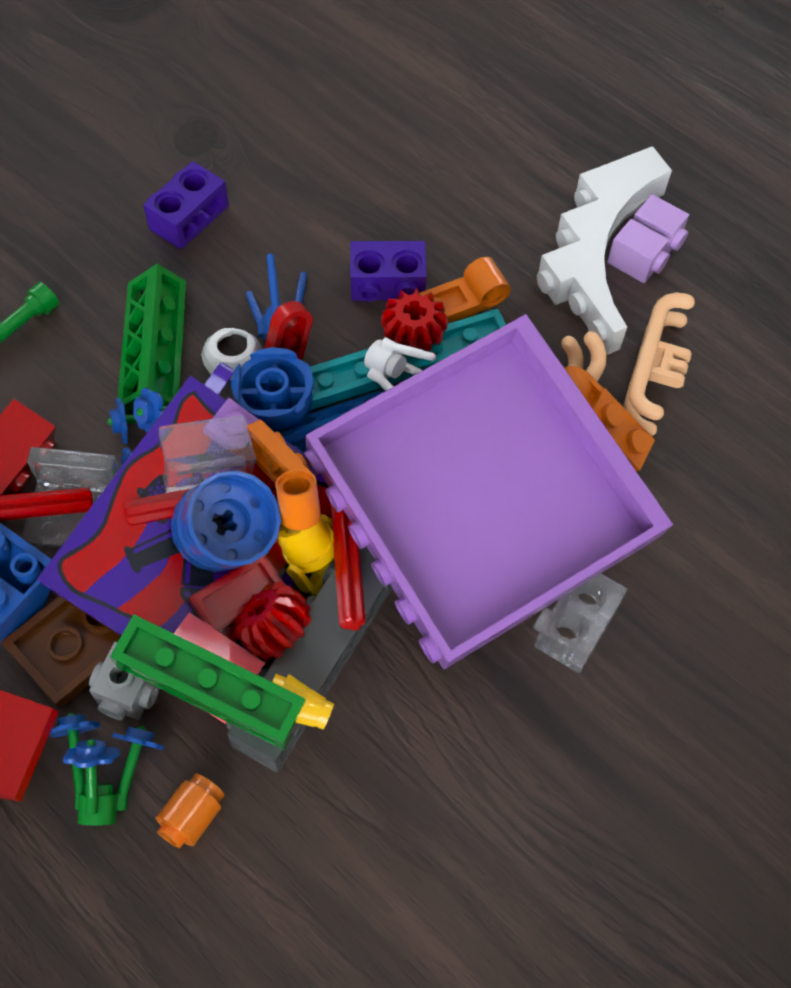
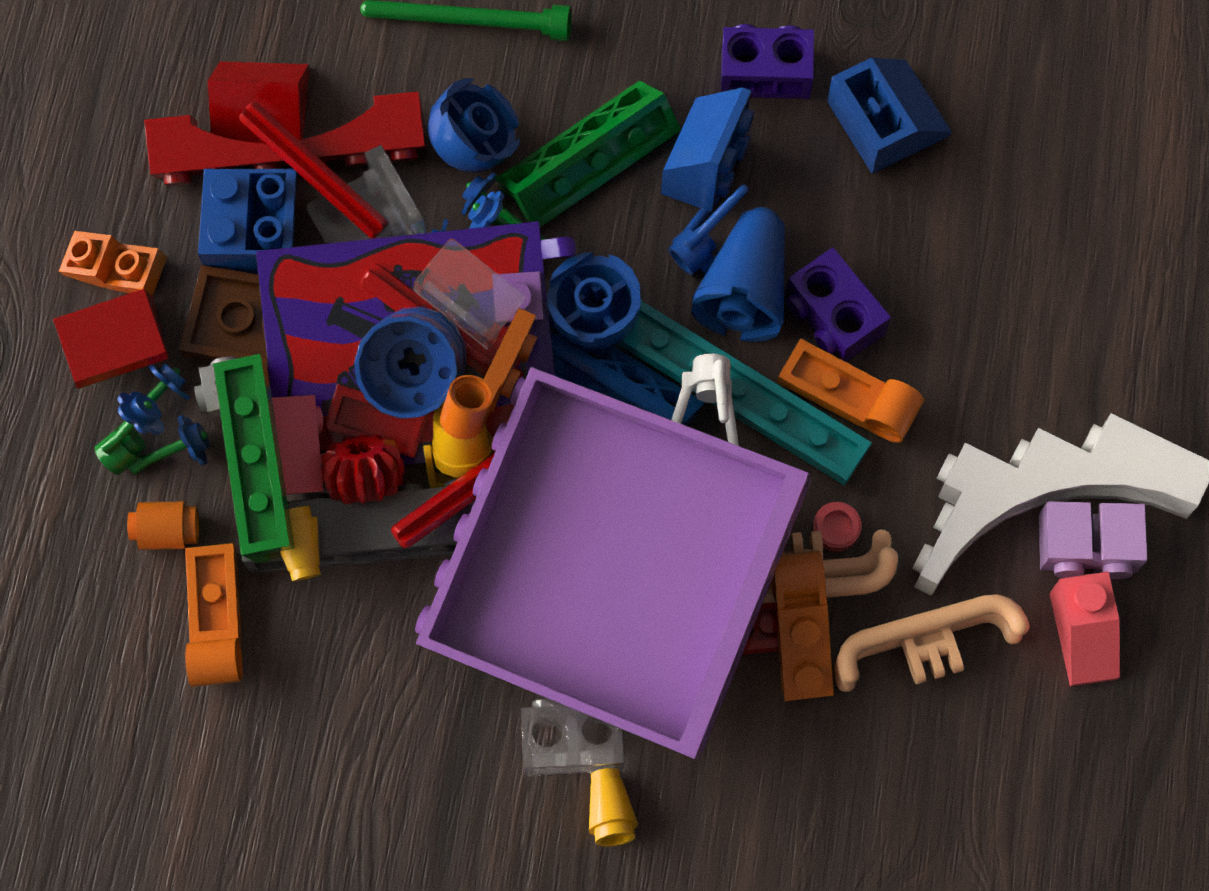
camera: 60 degrees right, 10 degrees up
(70, 391) = (473, 127): none -> blue cylinder
(212, 357) = (633, 254): white piece -> none
(219, 263) = (708, 148): none -> blue slope
(278, 170) = (885, 111): none -> blue slope
(290, 328) = (672, 270): red plate -> none
(297, 820) = (213, 616): none -> orange plate
(338, 303) = (746, 280): none -> blue cone
(414, 320) = (772, 390): red gear -> none
(648, 626) = (611, 811): none -> yellow cone
(705, 274) = (1087, 628): none -> coral slope

